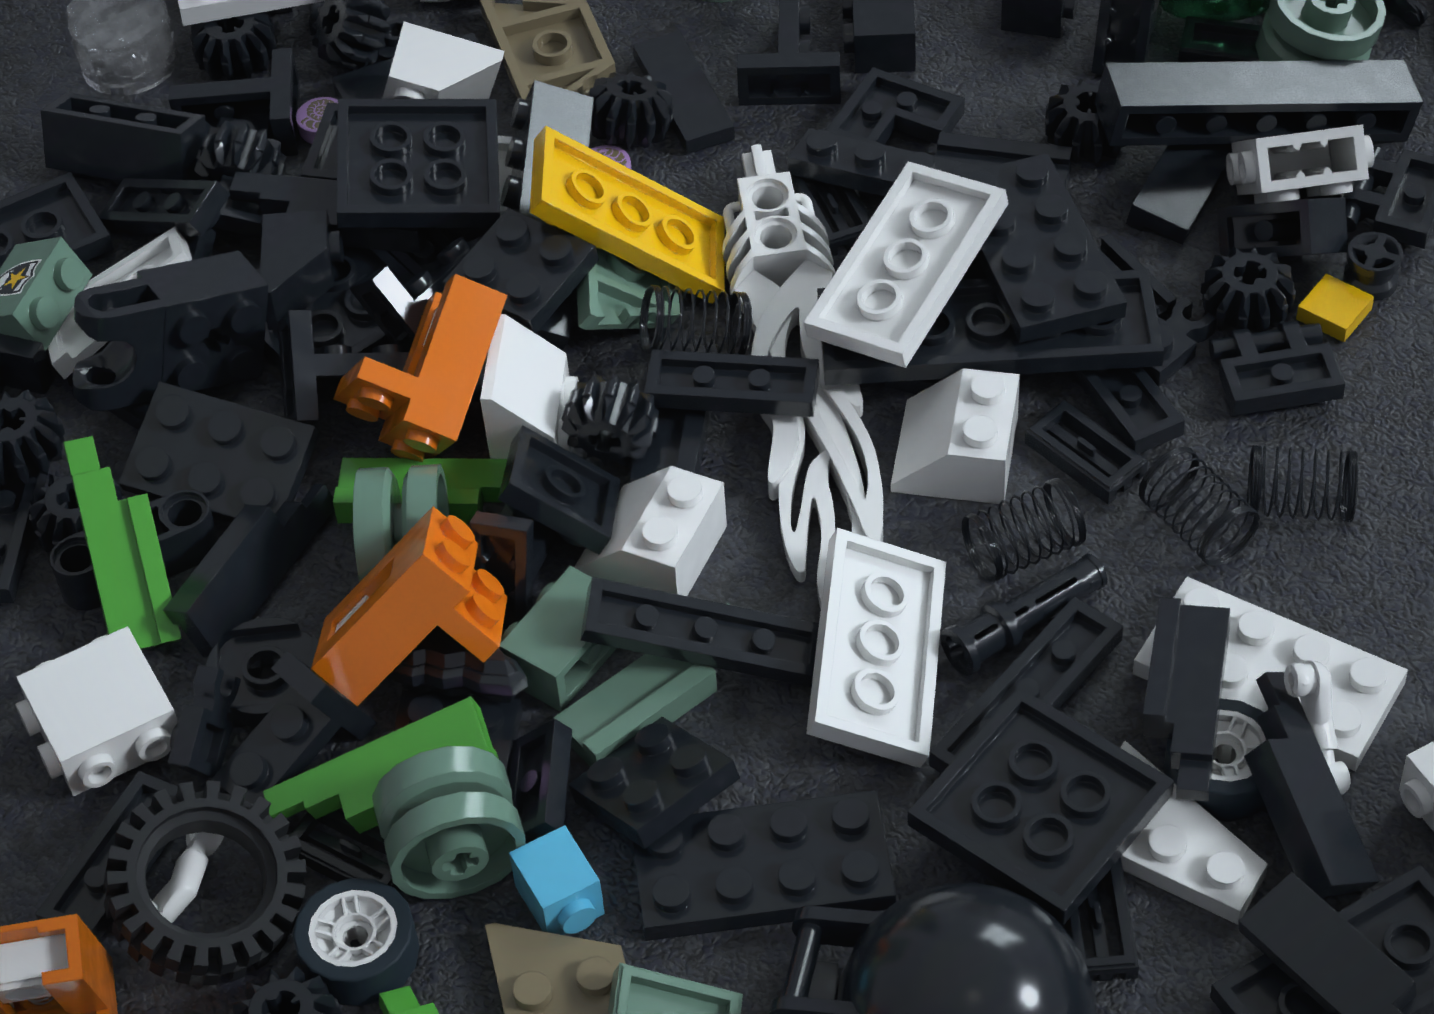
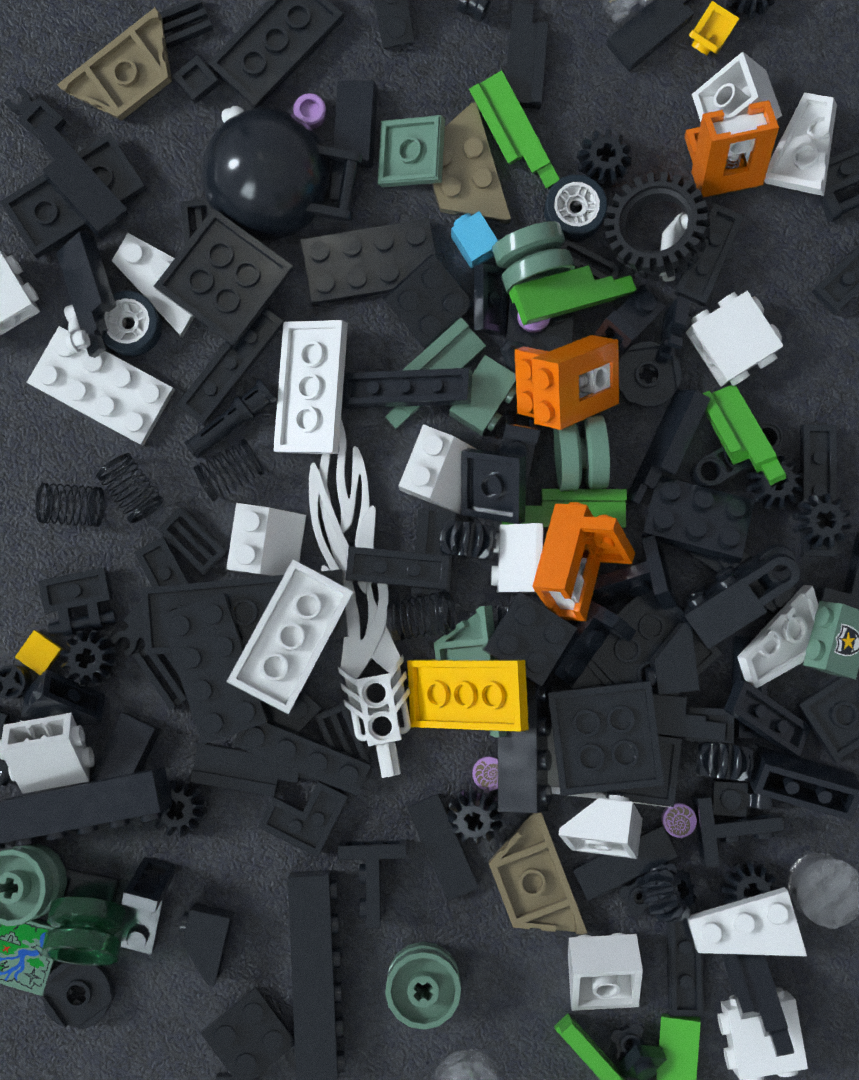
camera: 175 degrees right, 35 degrees up
(1187, 689) = (142, 351): black piece -> none

